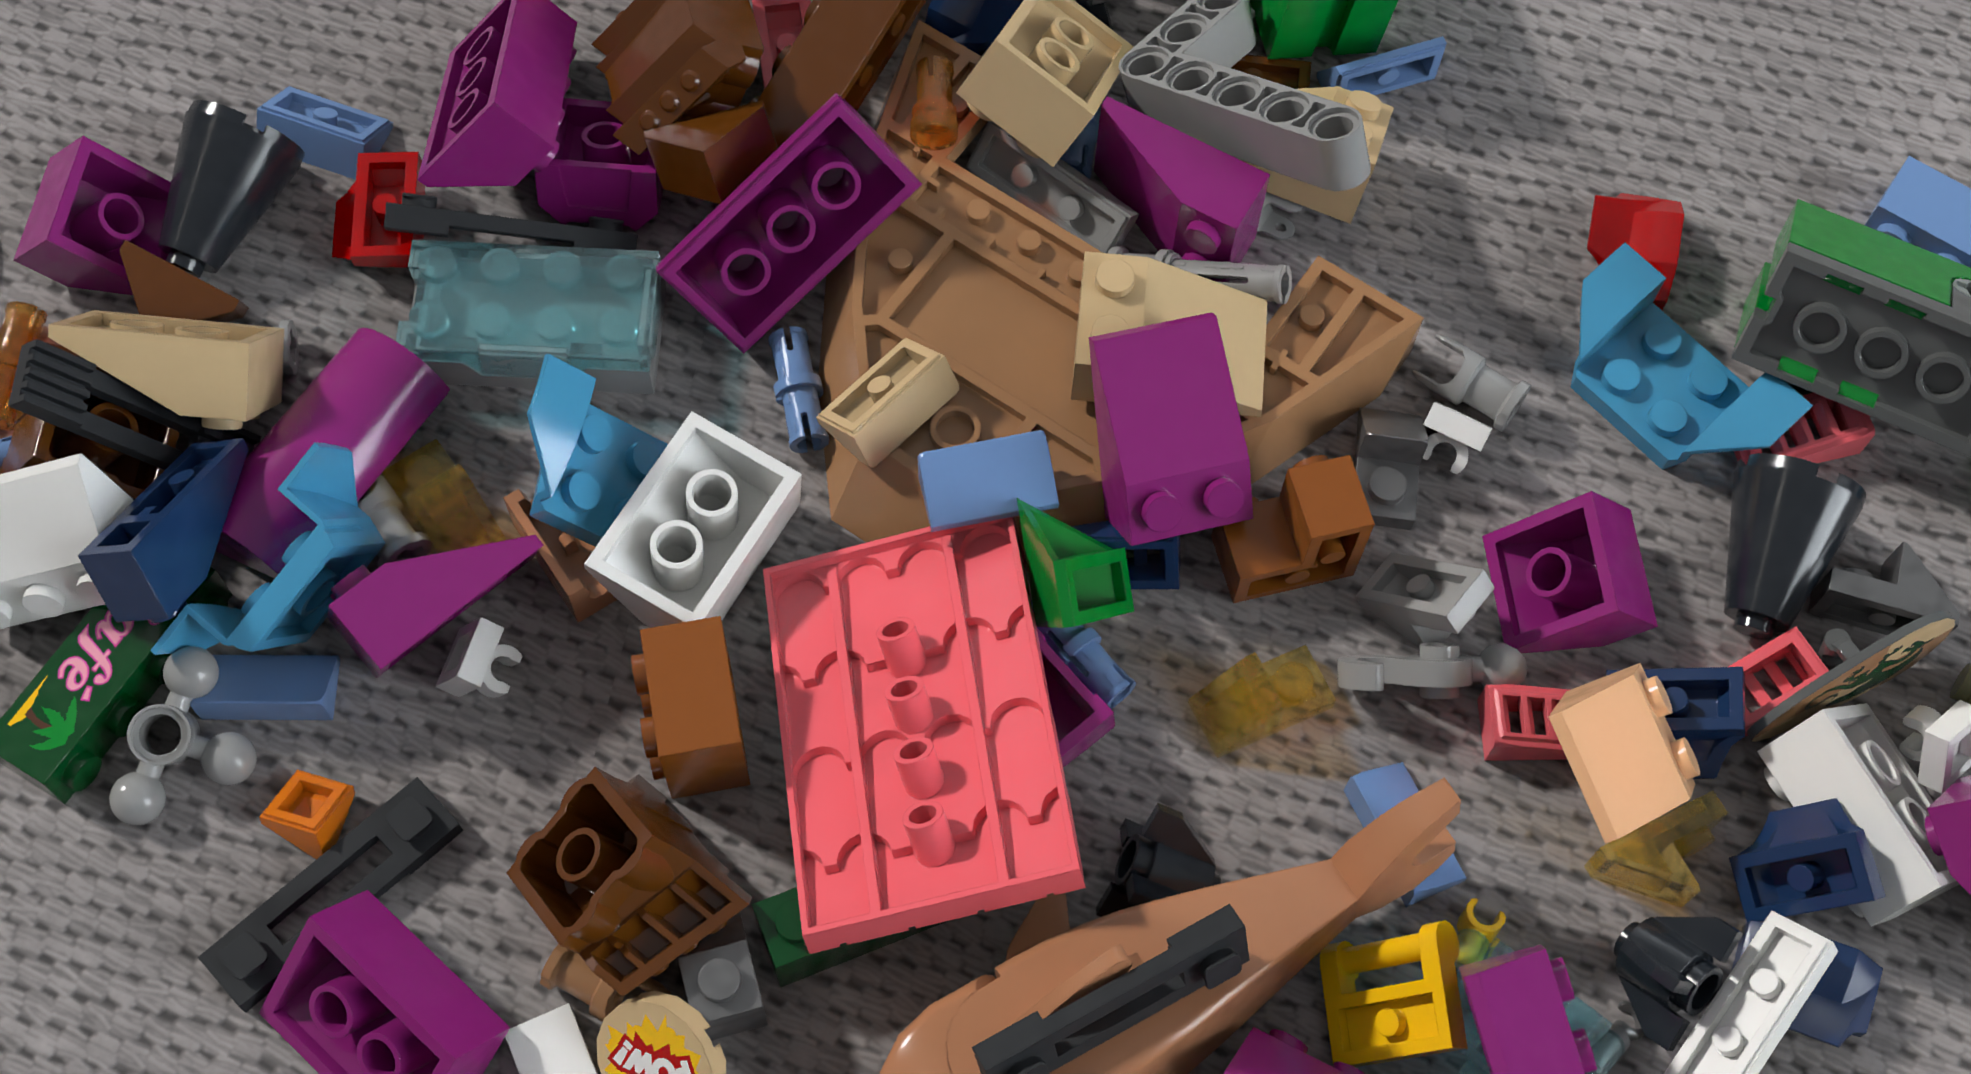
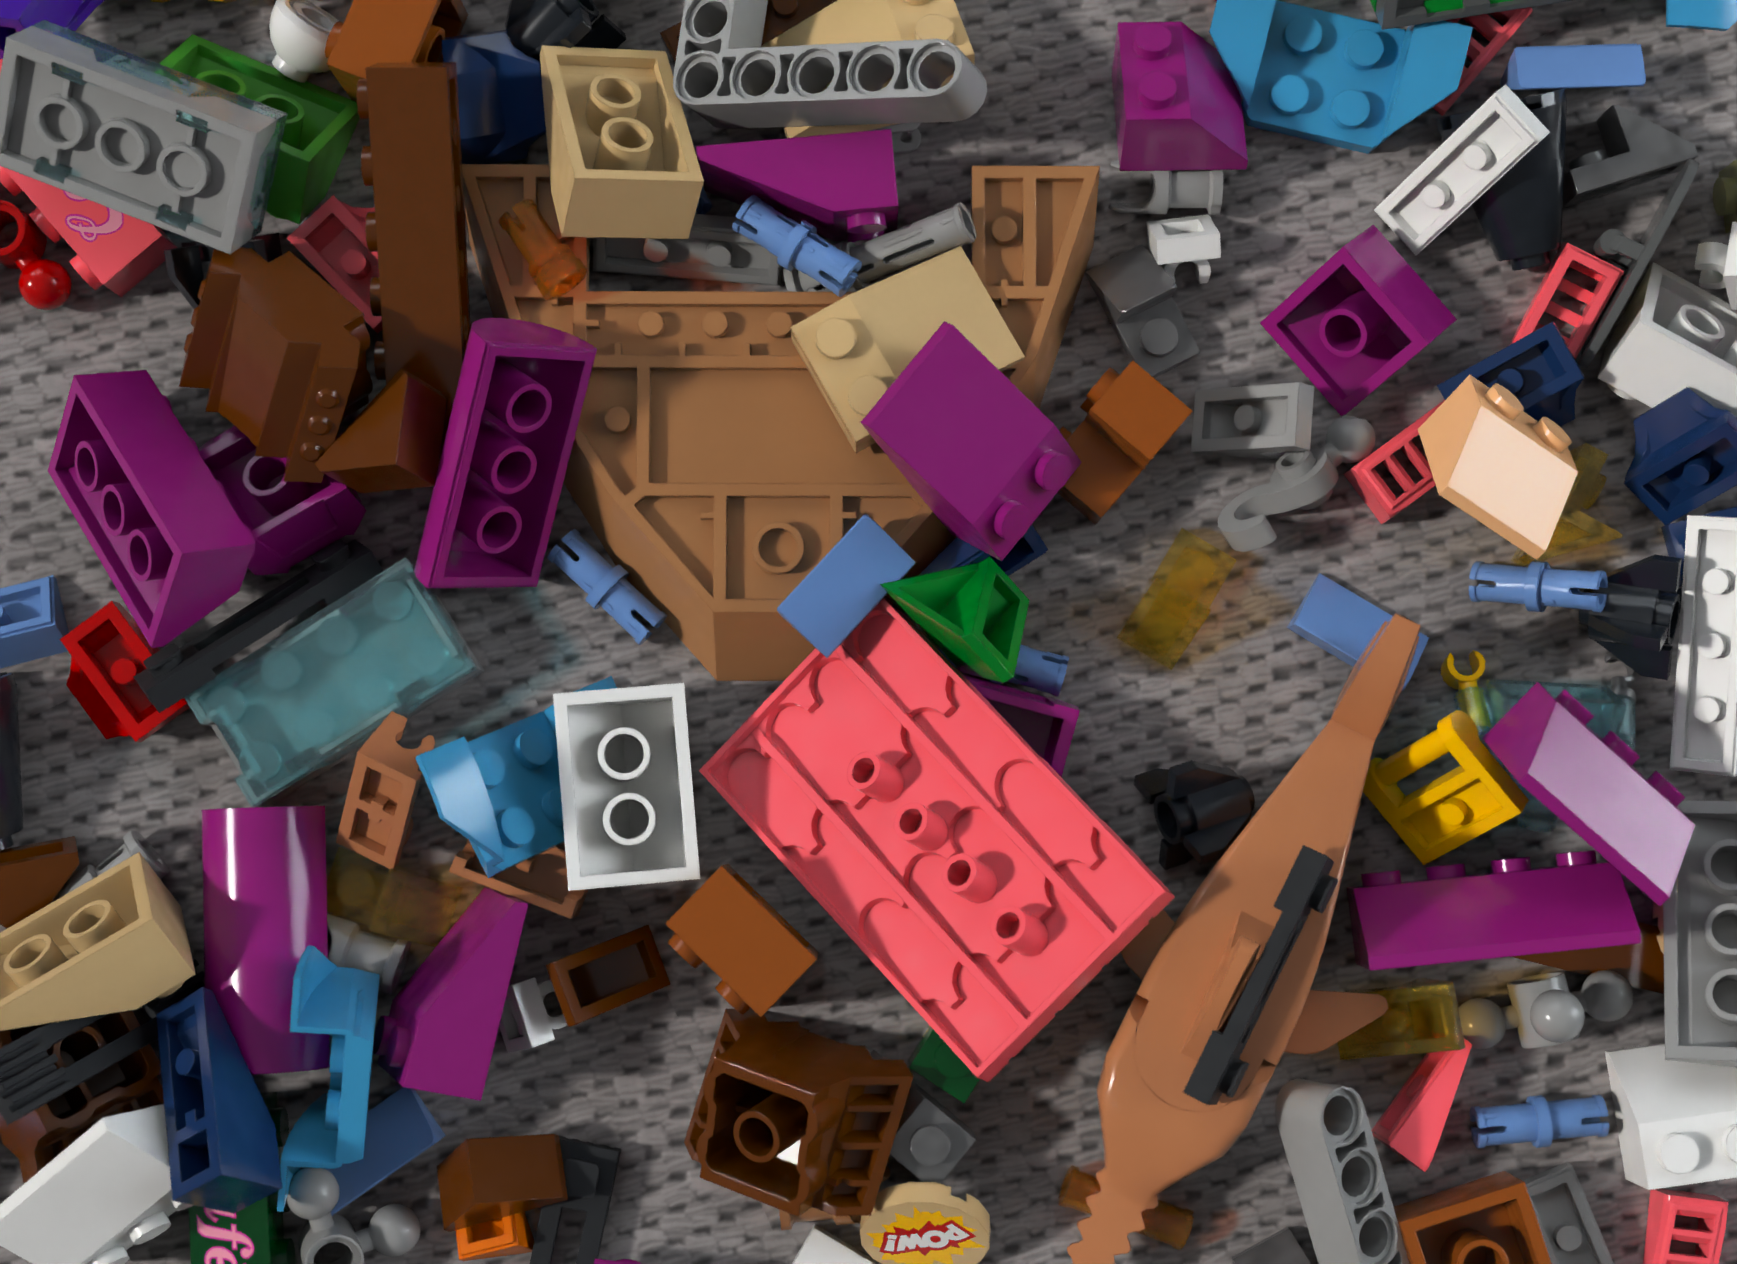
camera: 35 degrees left, 20 degrees up
(347, 769) = (500, 1178): none -> reddish brown slope
(493, 405) = (382, 794): none -> nougat hinge
(559, 671) = (607, 975): none -> reddish brown slope
(890, 401) = (707, 564): tan slope -> none
(1132, 217) = (796, 245): none -> medium blue pin
(1519, 315) = (1174, 101): none -> magenta slope
(1594, 886) = (1538, 586): none -> medium blue pin
(1734, 501) = (1462, 169): none -> white tile
(1894, 503) = (1575, 67): none -> medium blue slope

